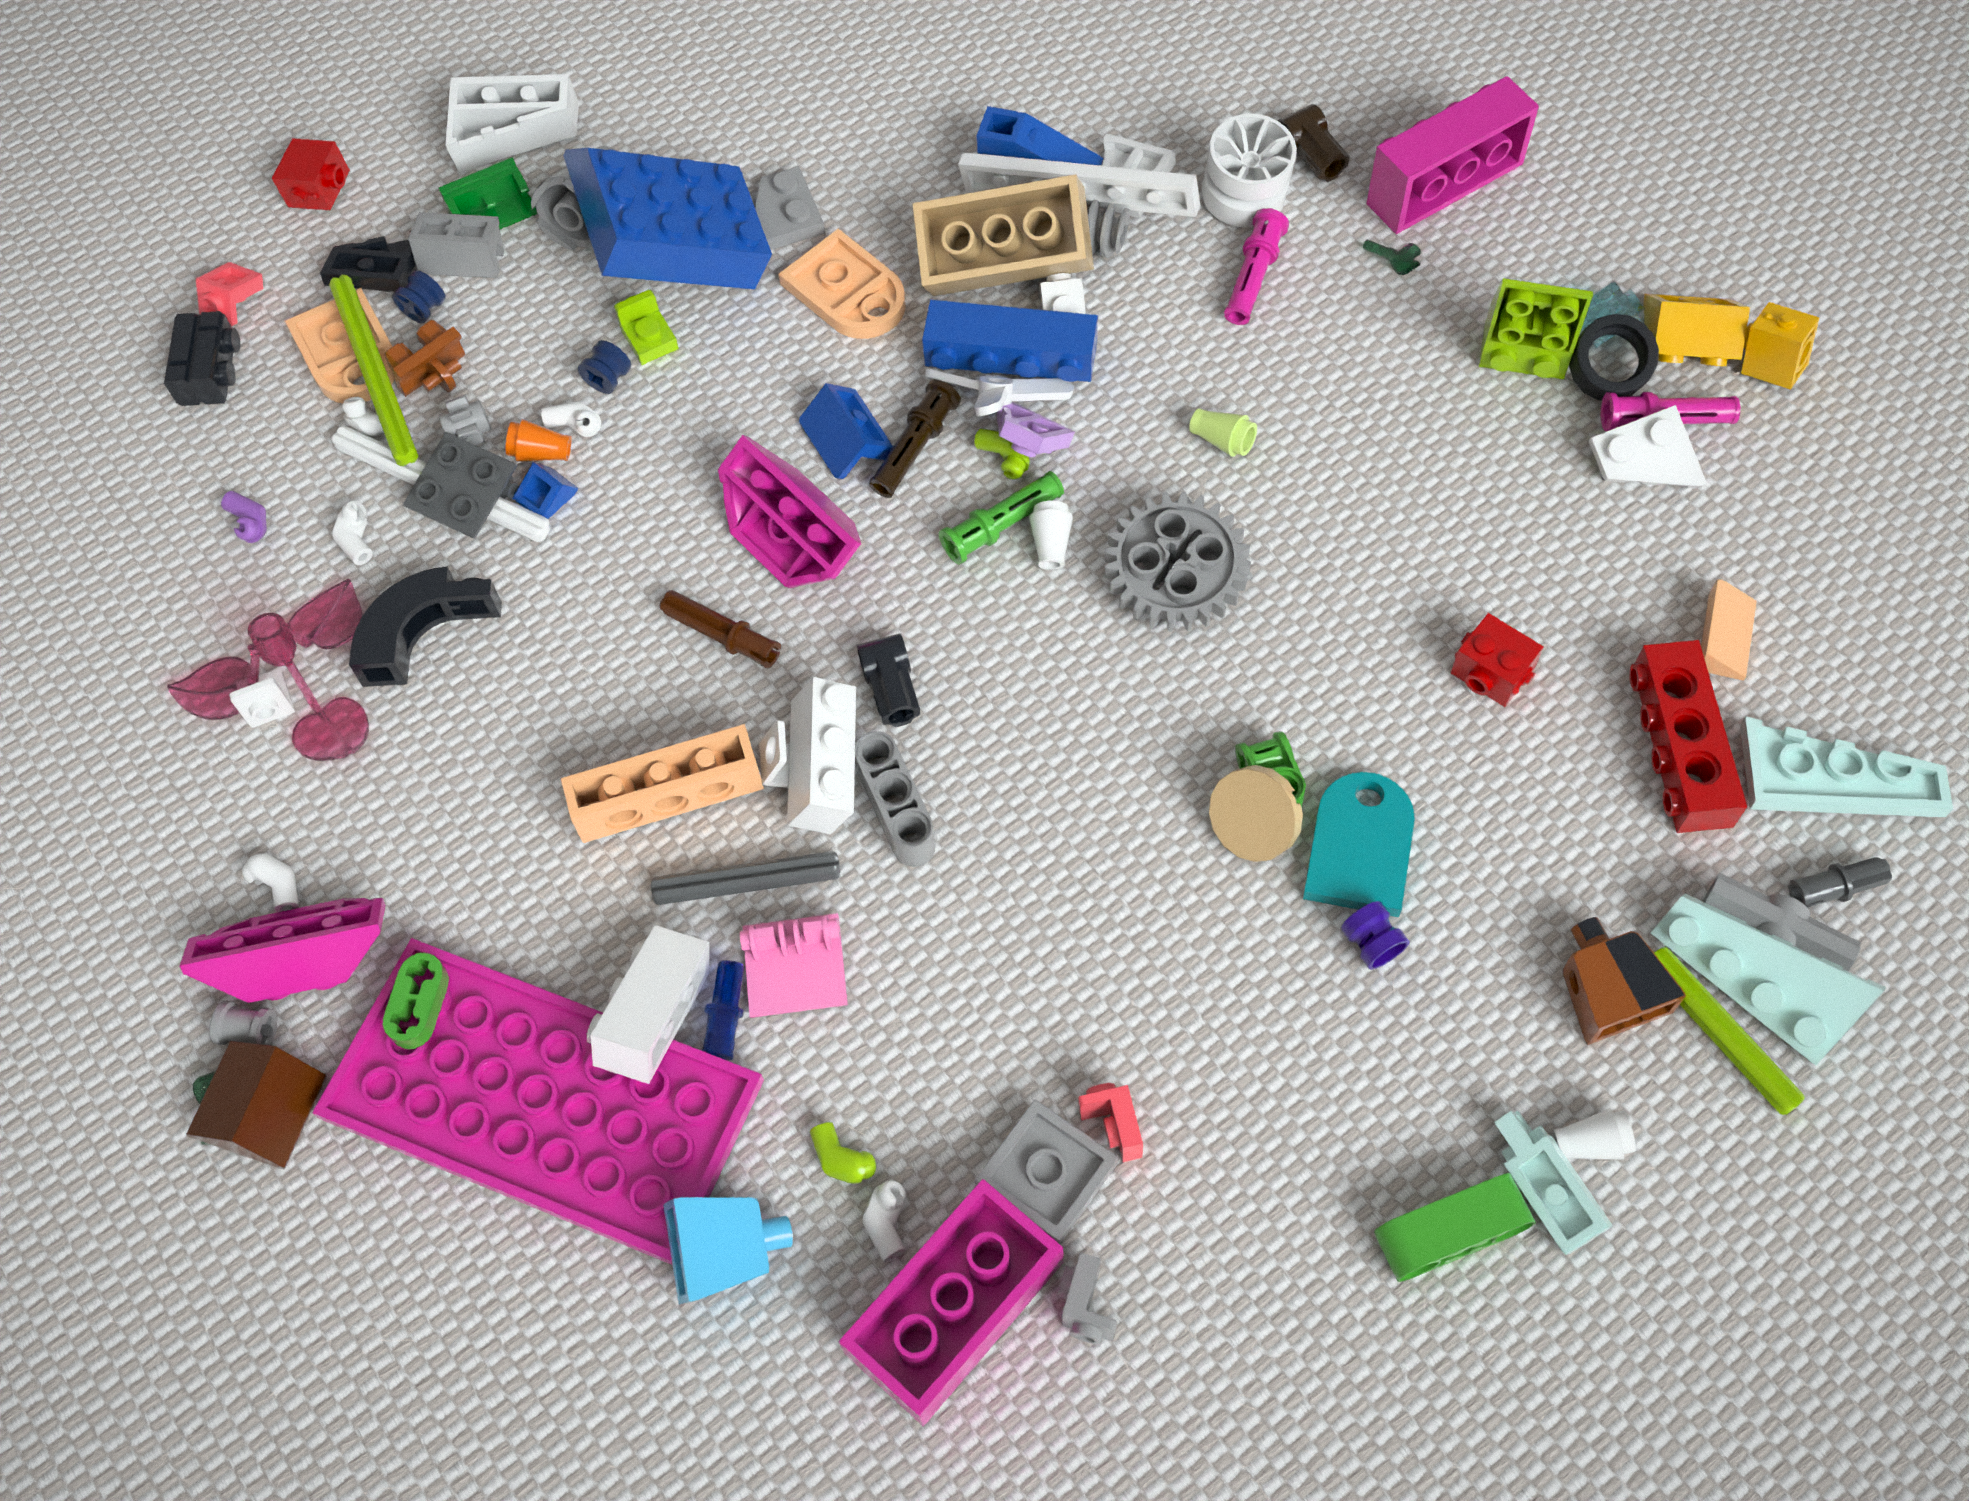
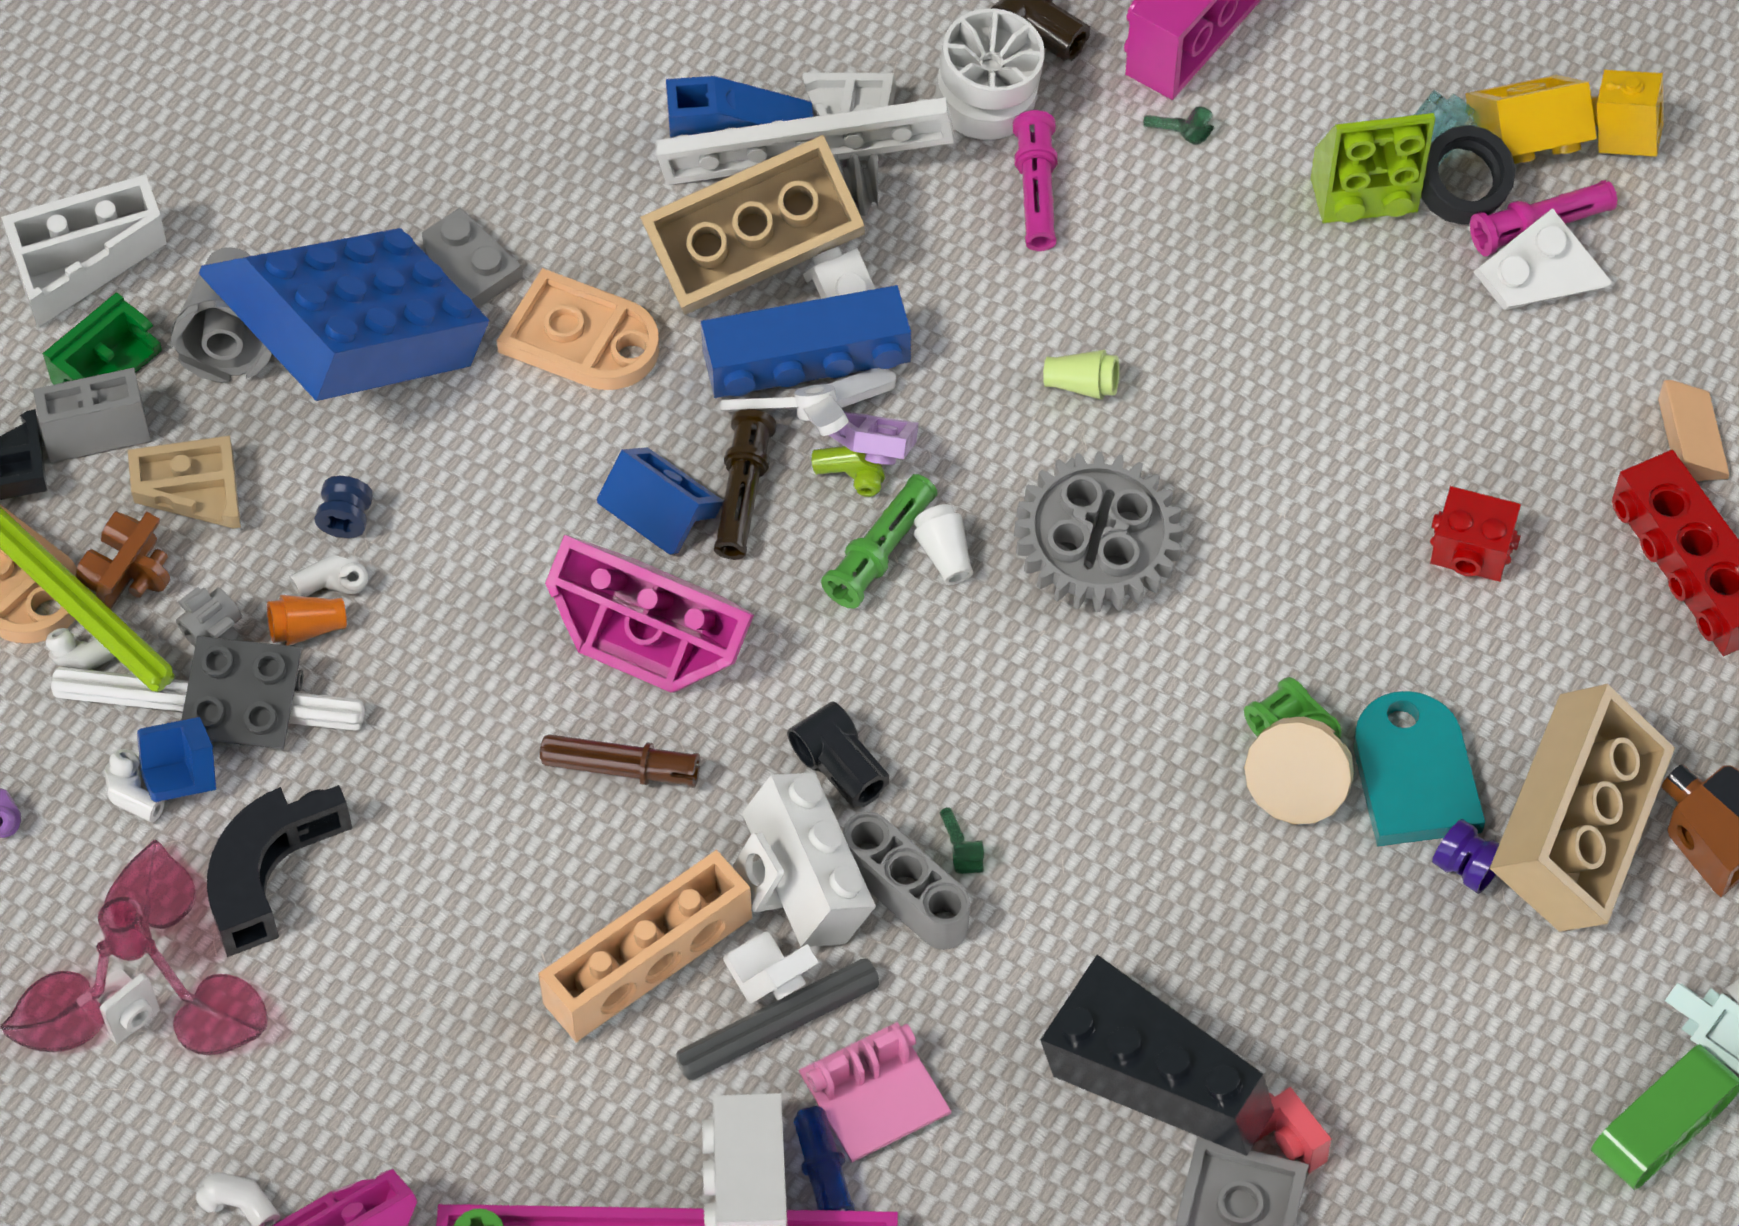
camera: 25 degrees left, 5 degrees down
(389, 522) = (176, 759): none -> blue panel
(419, 296) = (74, 489): dark blue wheel -> none
(504, 313) = (188, 479): none -> tan wing
(544, 490) = (335, 670): blue slope -> none
(645, 327) = (367, 448): lime bracket -> none
(751, 834) = (763, 969): none -> white bracket
(956, 793) = (966, 855): none -> clear green hand
(1017, 1016) = (1154, 1060): none -> black wedge
(1487, 927) = (1583, 808): none -> tan brick

